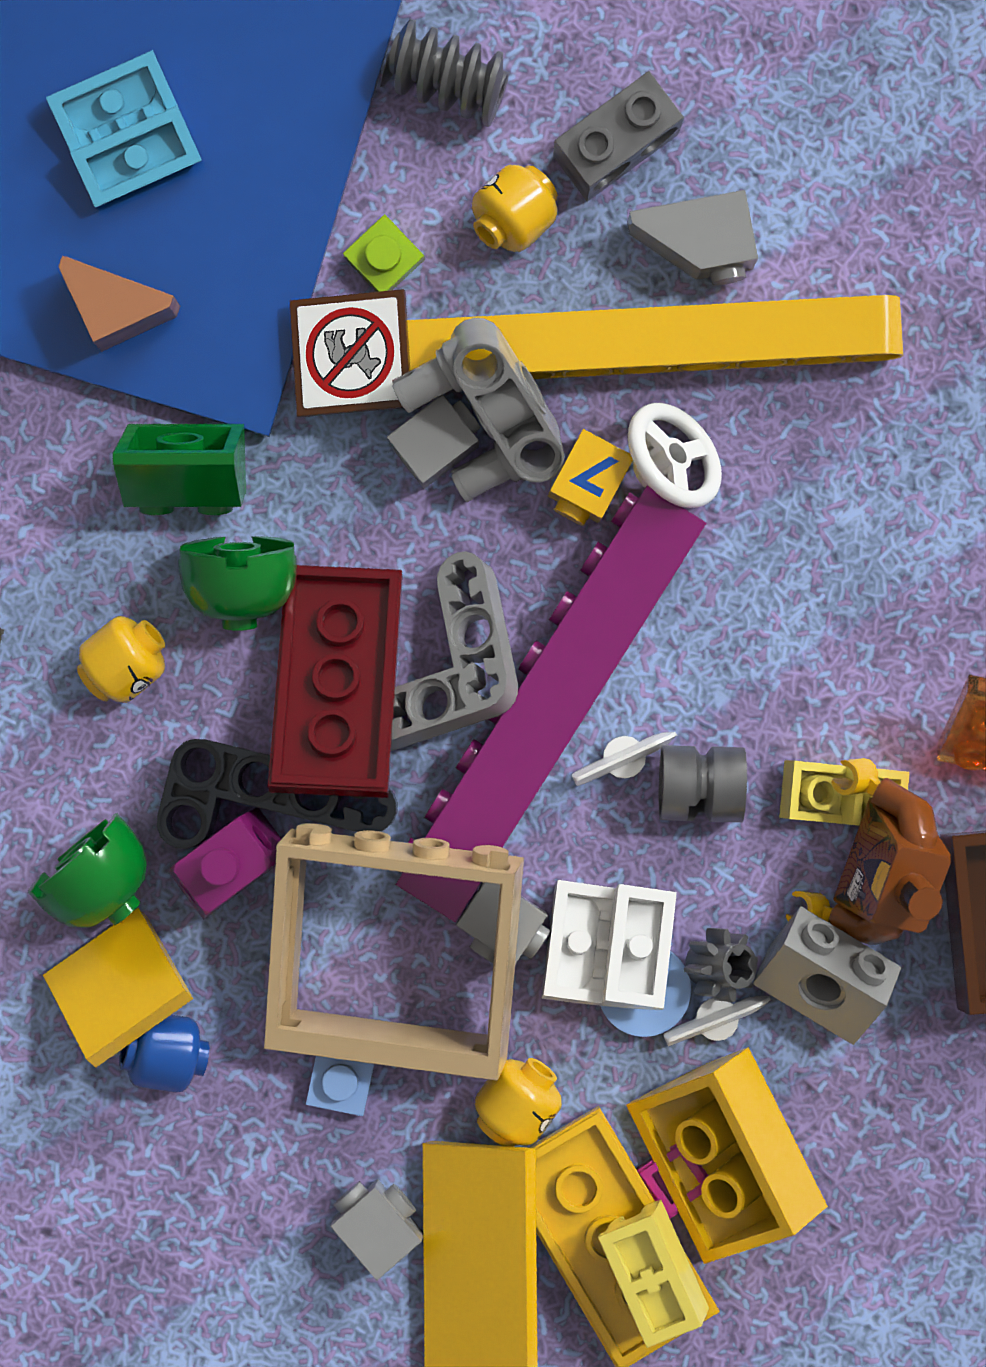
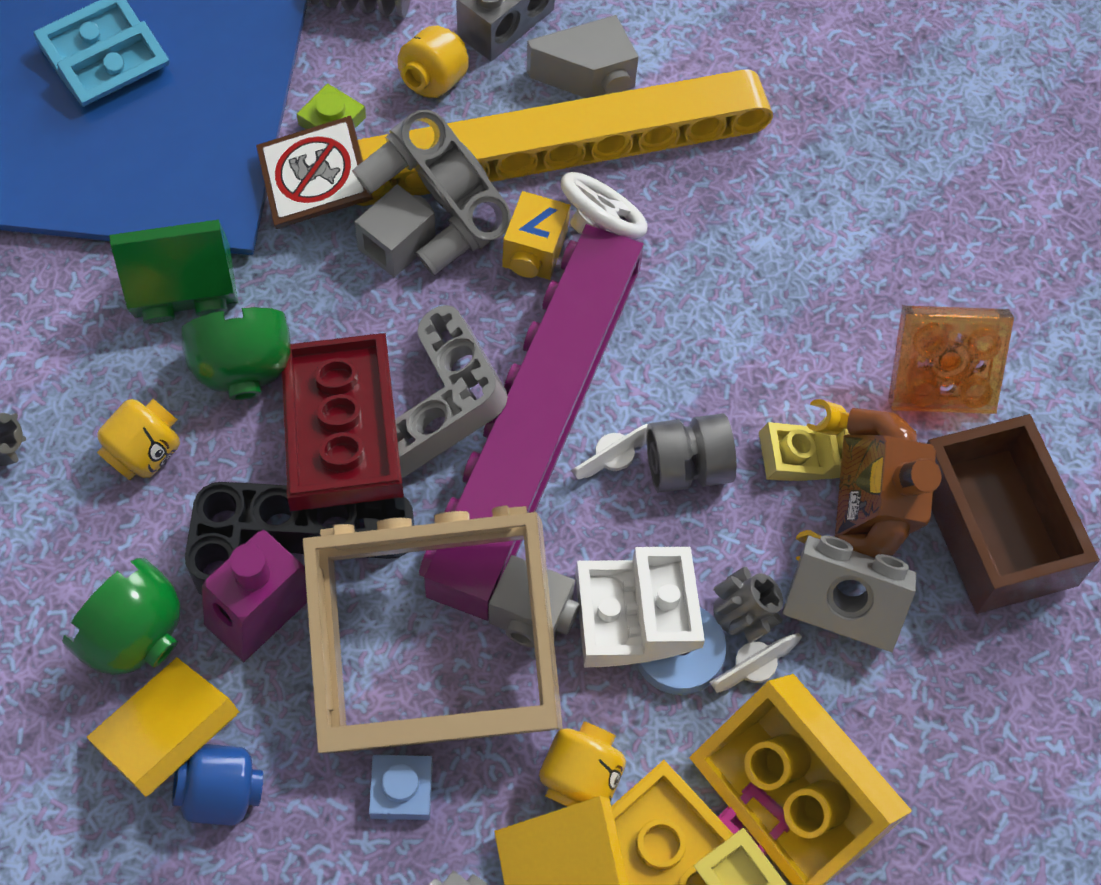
camera: 10 degrees left, 25 degrees down
(113, 305) = (107, 161): nougat slope -> none

